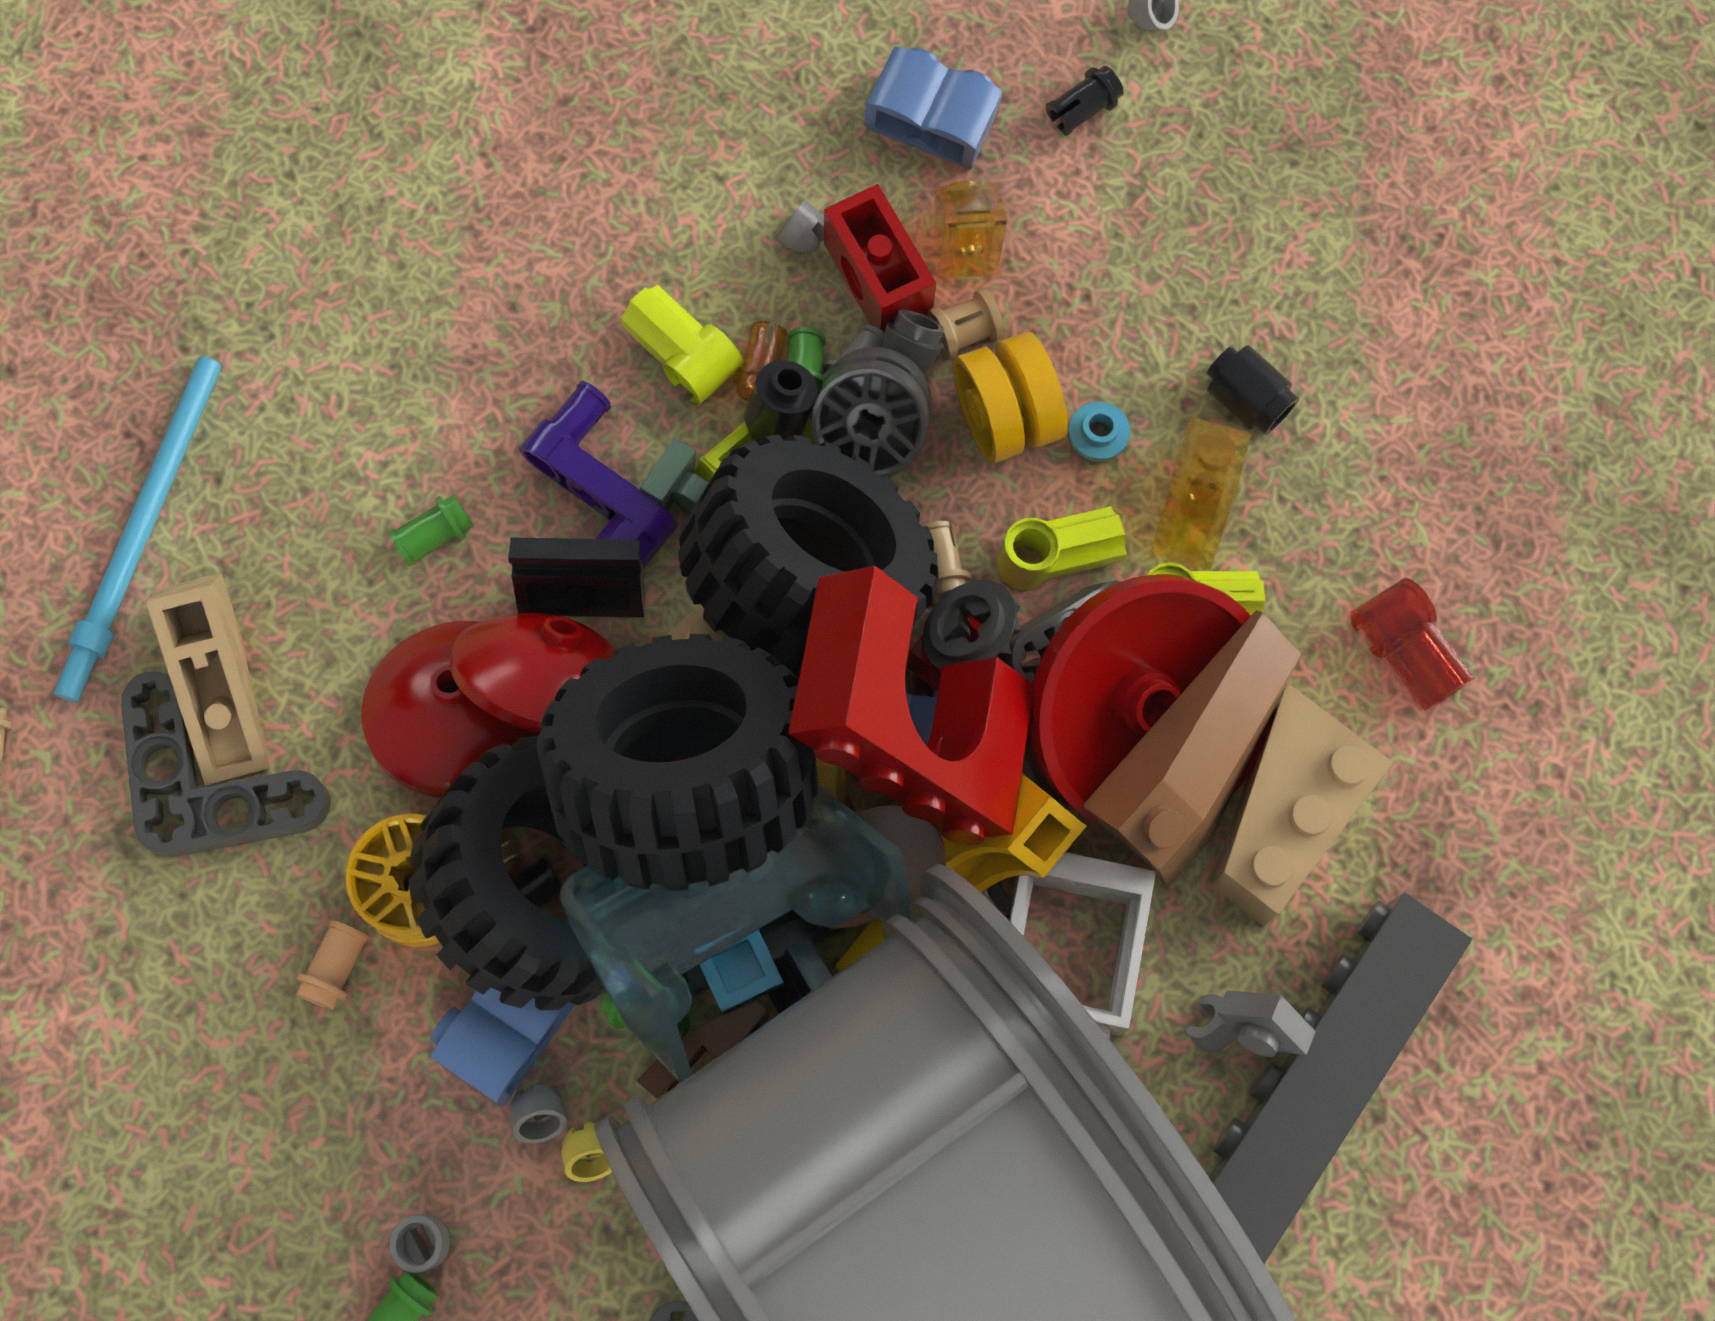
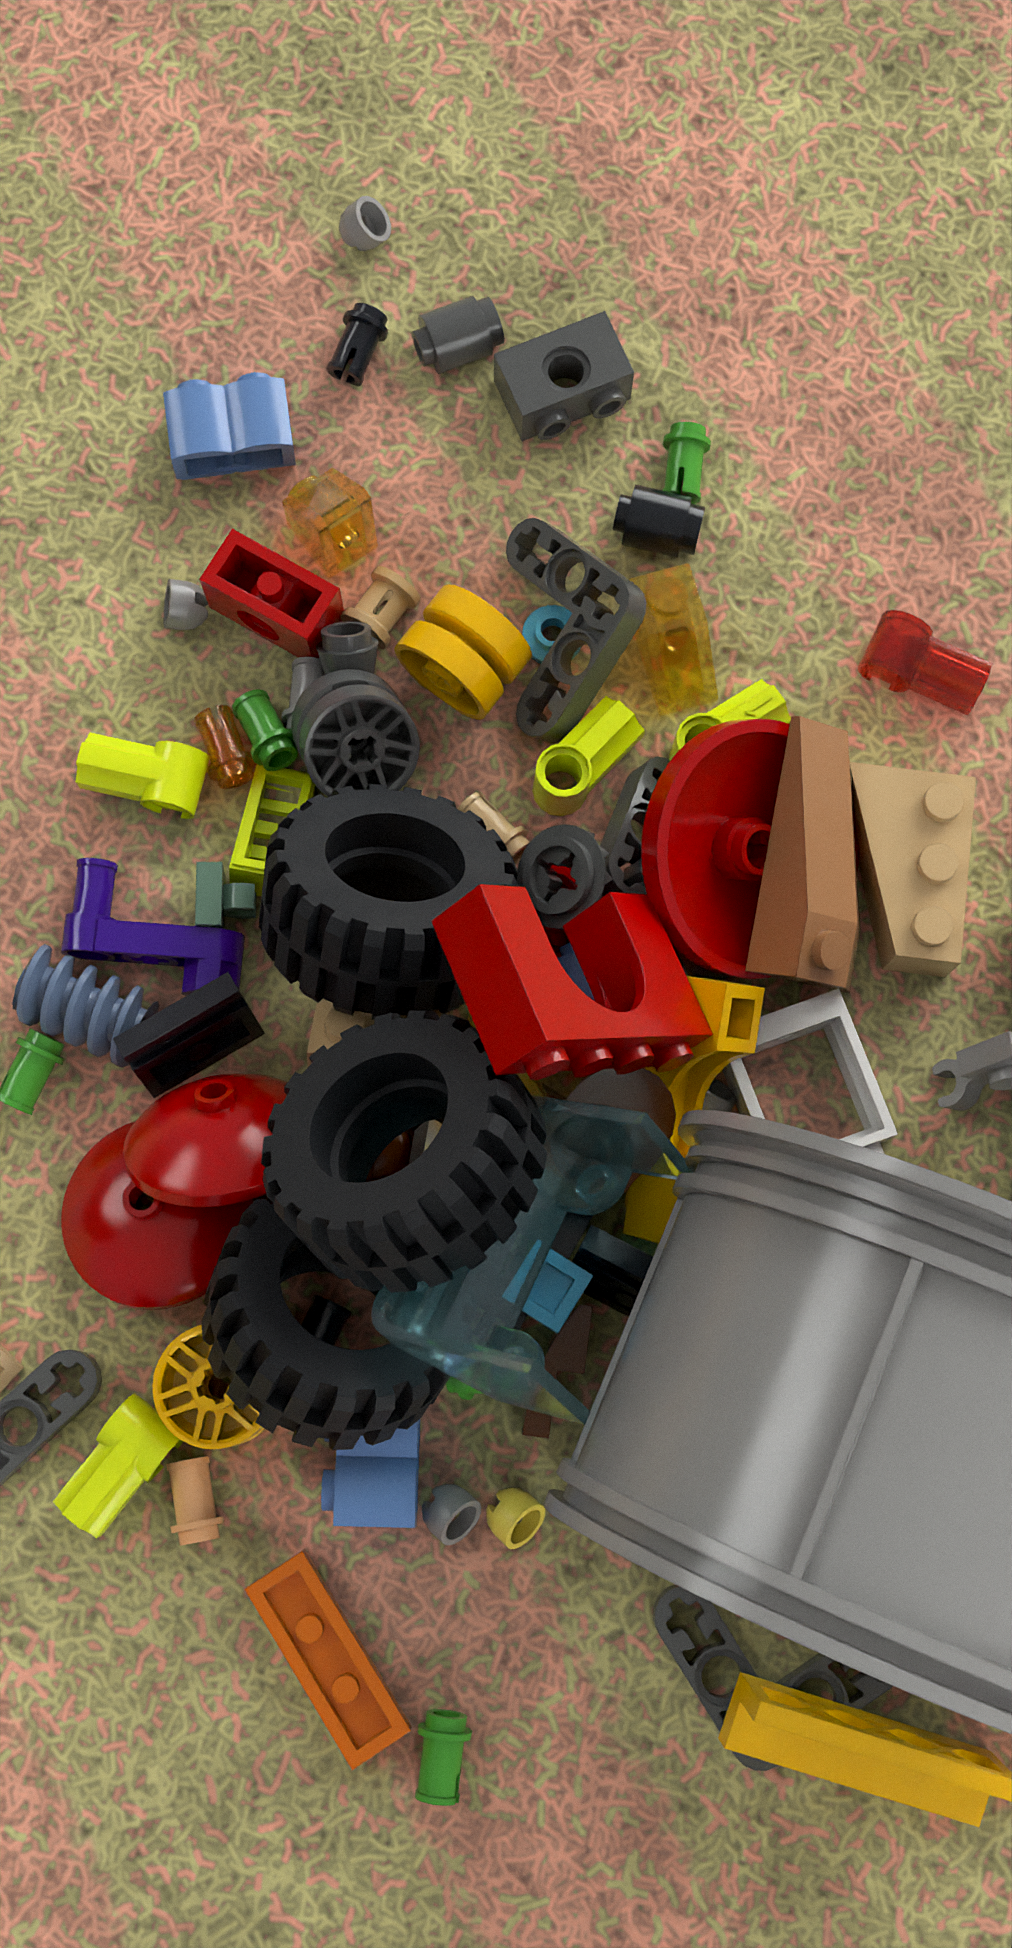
camera: 30 degrees left, 5 degrees up
(294, 895) = (126, 1456): none -> neon yellow piece
(355, 1170) = (328, 1659): none -> orange plate
(409, 1248) = (419, 1694): light grey hinge -> none
(501, 497) = (76, 1005): none -> sand blue piece
(780, 400) = (270, 776): black brick -> none
(1133, 436) = (588, 625): none -> dark grey beam
(1175, 138) = (458, 333): none -> dark grey brick
(1269, 208) = (581, 352): none -> dark grey brick
(1314, 342) = (686, 450): none -> bright green pin

